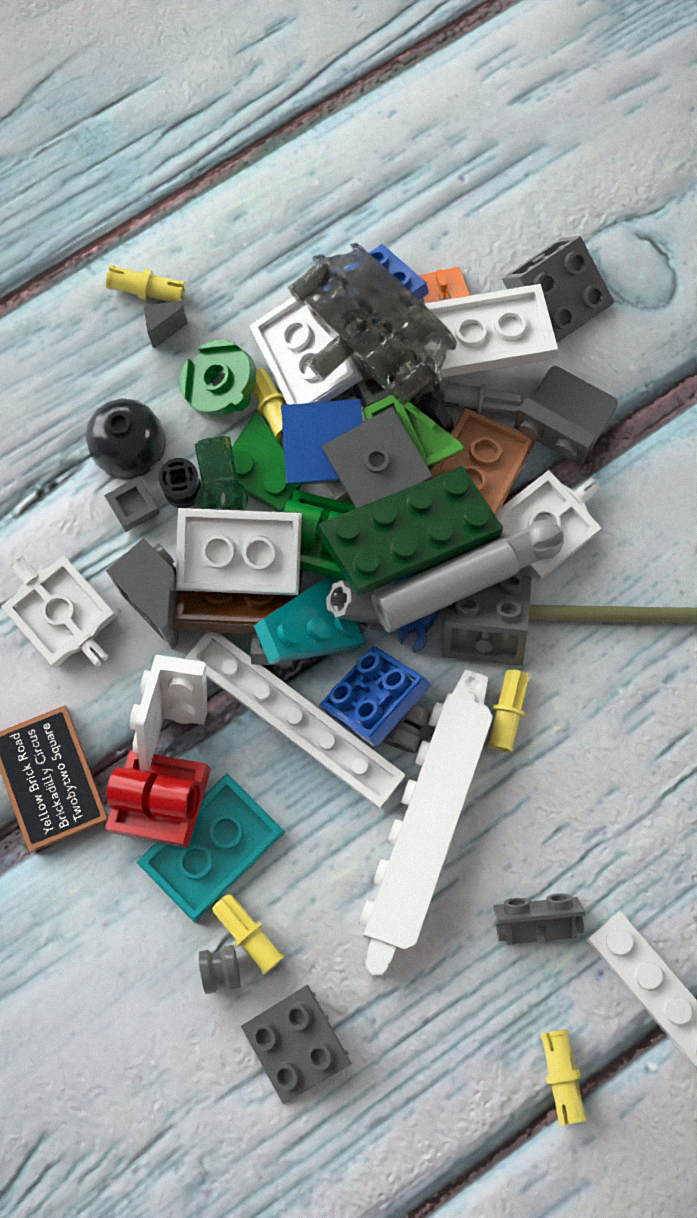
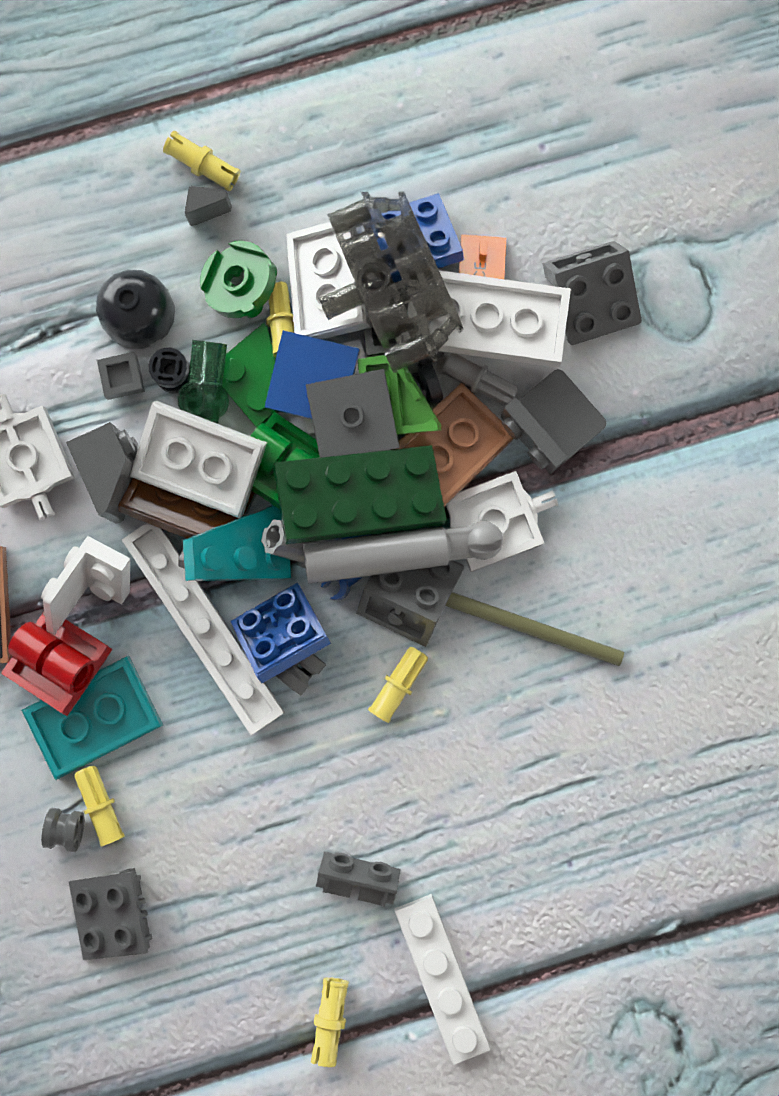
camera: 20 degrees right, 10 degrees up
(429, 822) = (290, 761): white hinge -> none

